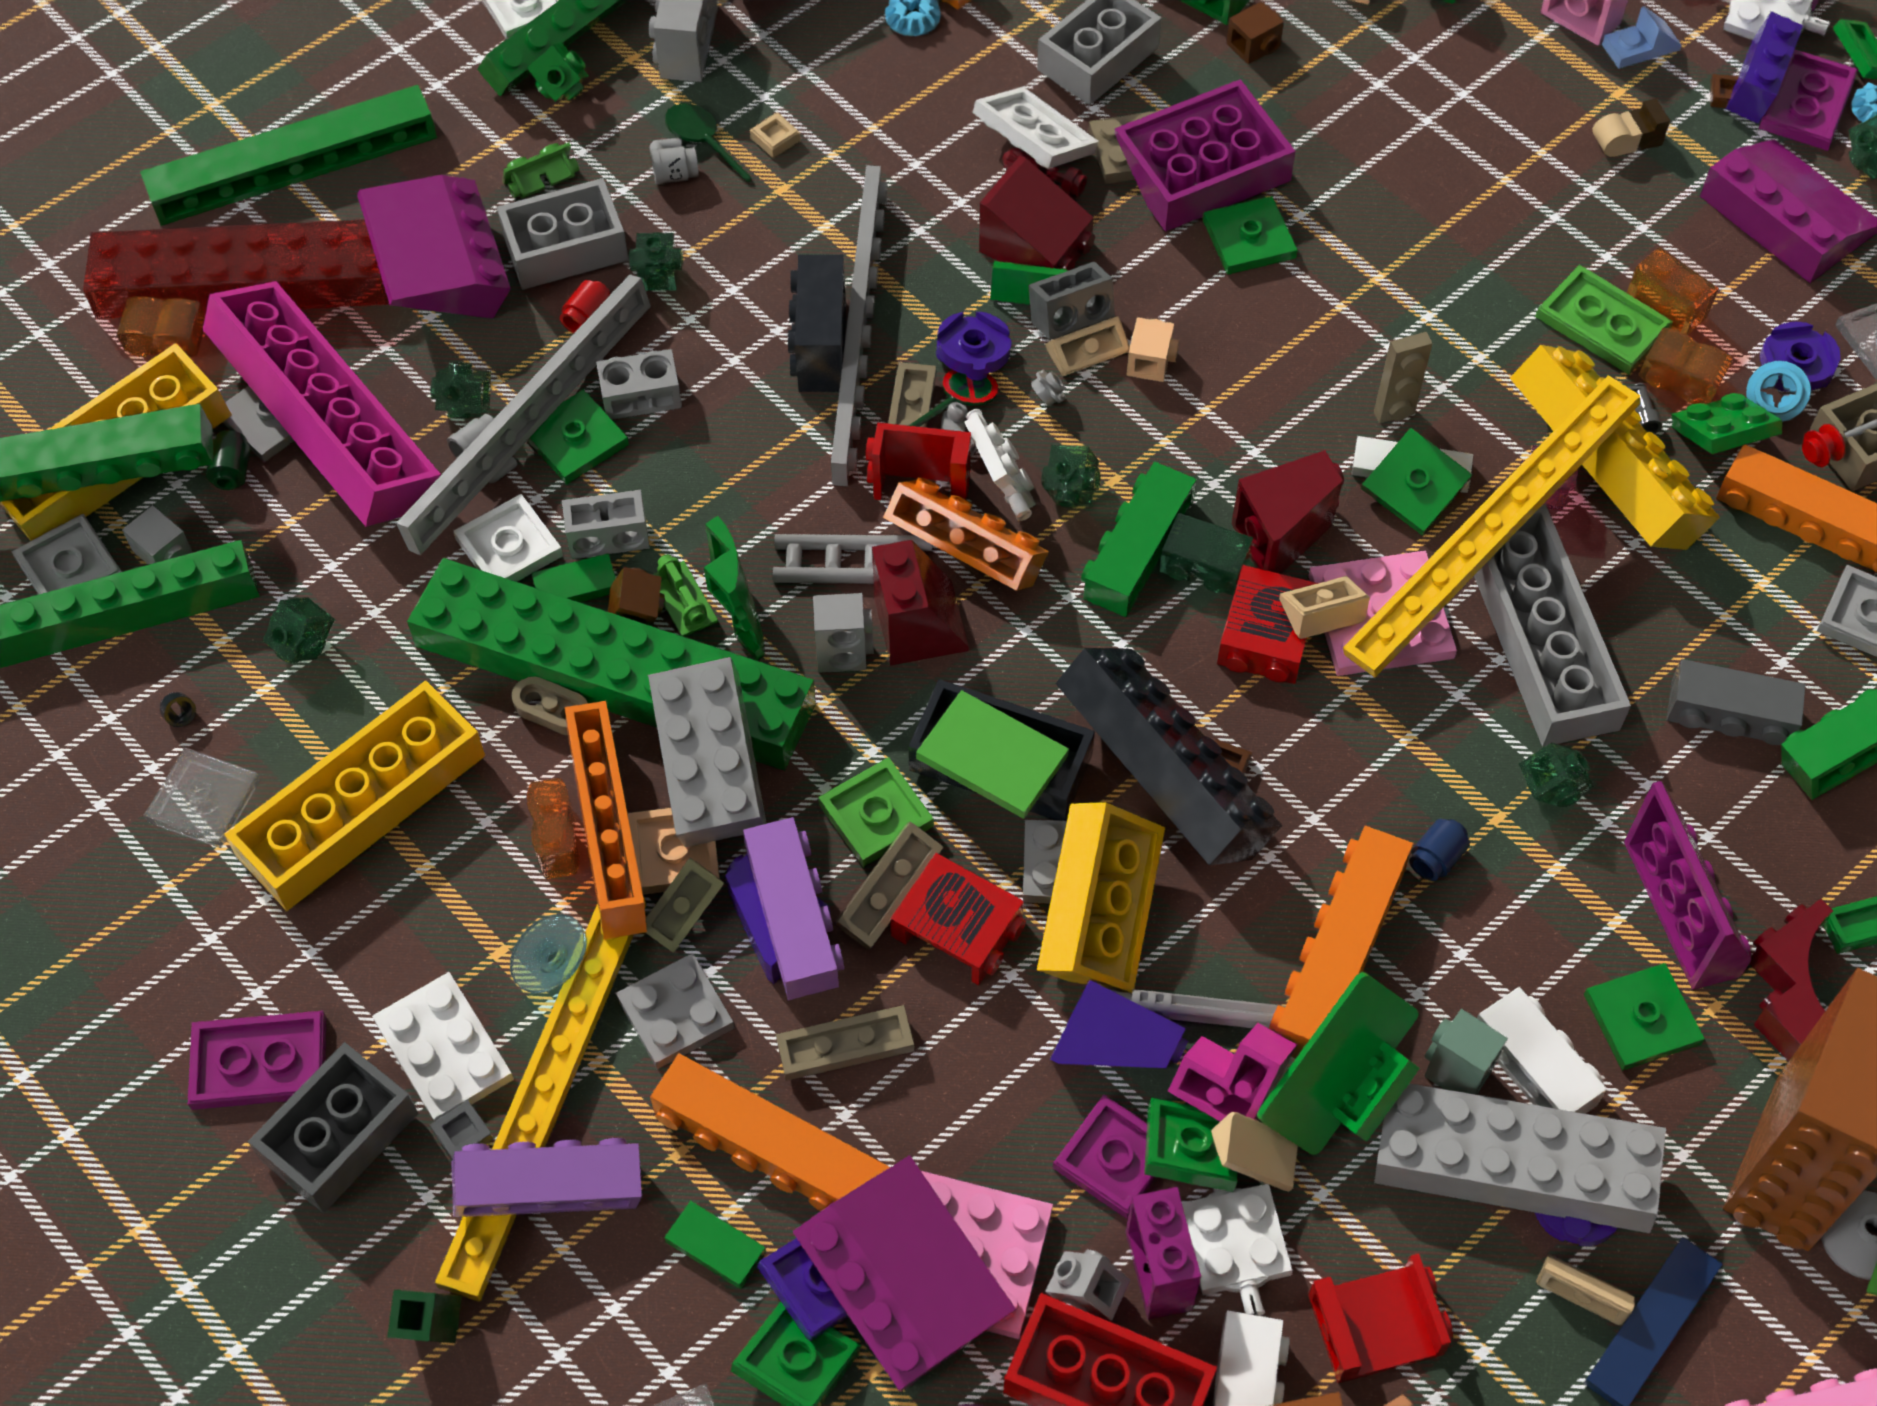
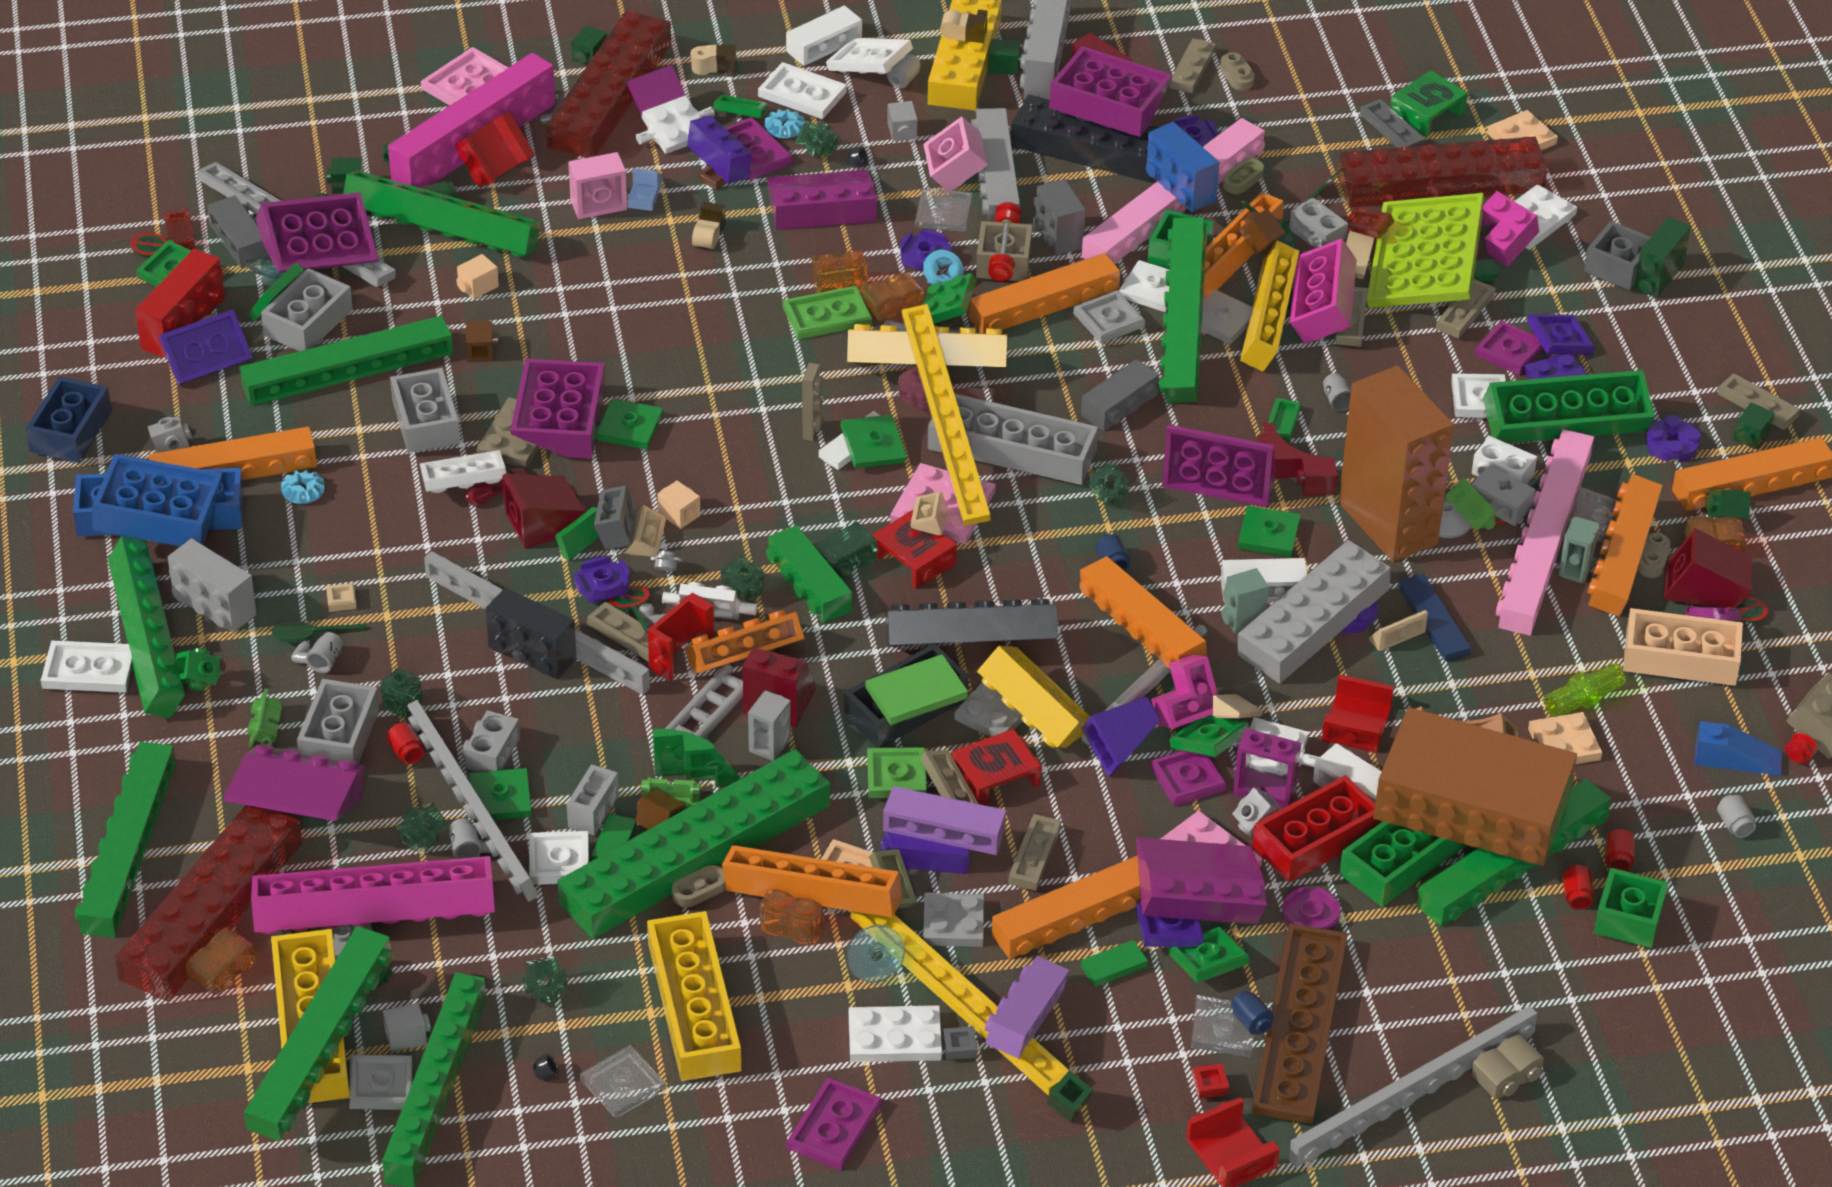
camera: 60 degrees left, 15 degrees down
(333, 1127) = (917, 1092): dark grey brick -> none
(707, 751) = (813, 808): light grey brick -> none
(1287, 509) = (853, 496): dark red slope -> none
(1345, 1069) = (1228, 641): green bracket -> none

